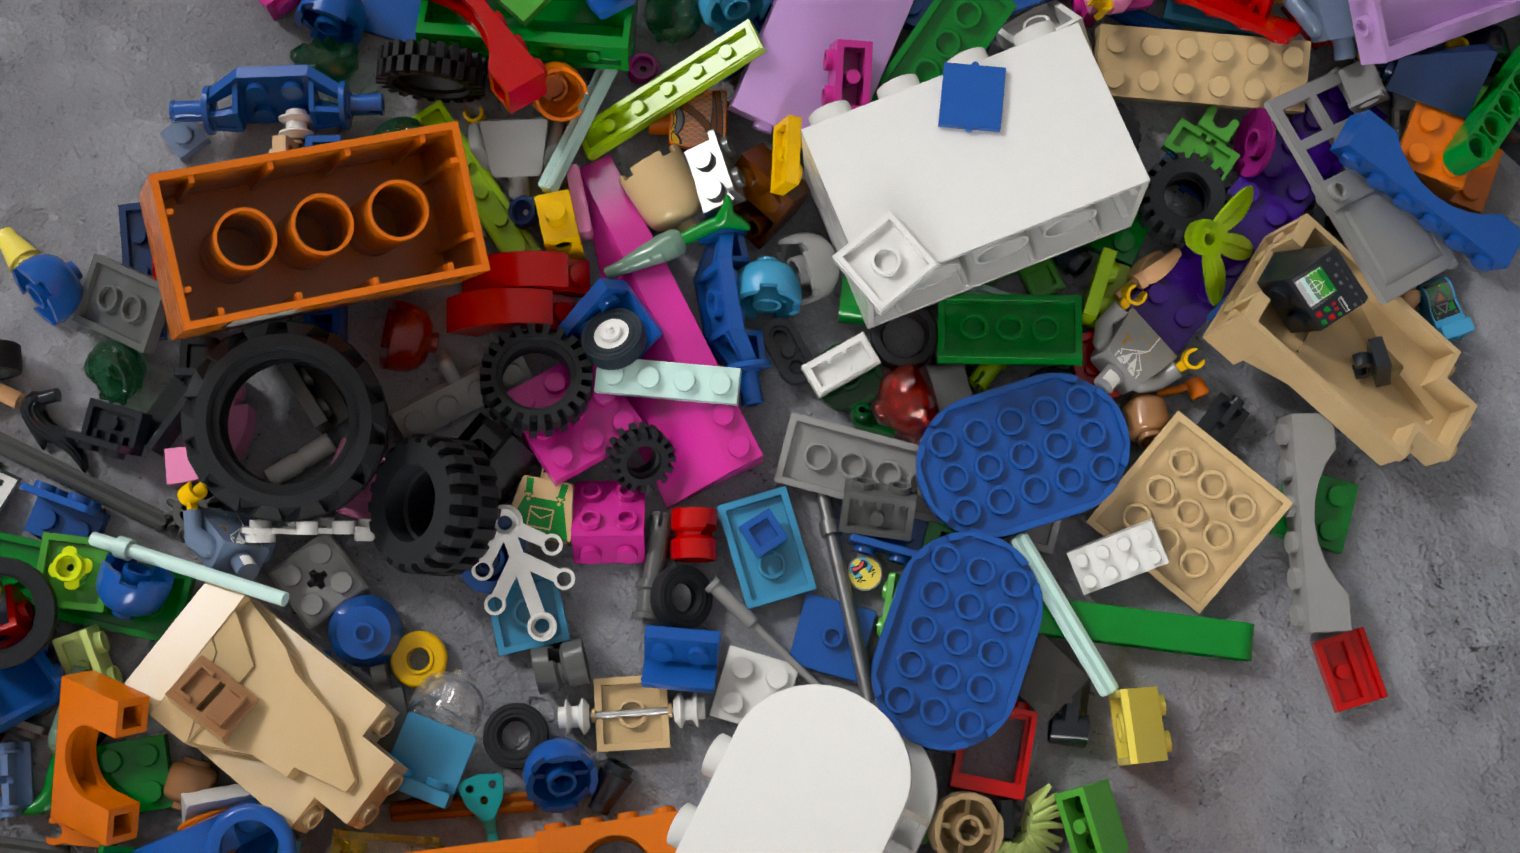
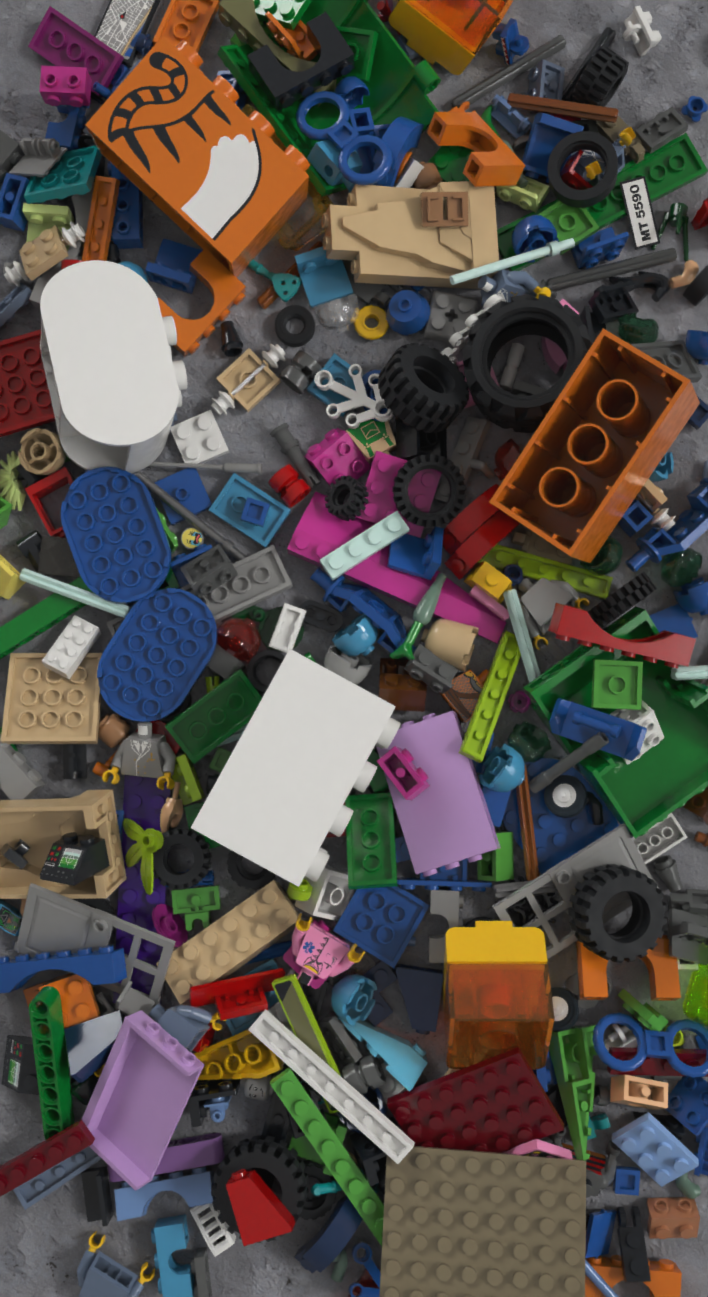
camera: 140 degrees right, 5 degrees up
(59, 567) = (574, 215): neon yellow plate -> none
(559, 775) = (257, 321): blue cylinder -> none
(563, 94) = (546, 647): orange helmet -> none
(613, 338) = (408, 542): black wheel -> none
(662, 597) = (282, 447): black tyre -> none
(680, 658) = (245, 422): blue bracket -> none
(786, 164) = (405, 711): yellow plate -> none
(885, 262) = (291, 668): white tile -> none
(972, 97) = (320, 796): blue piece -> none

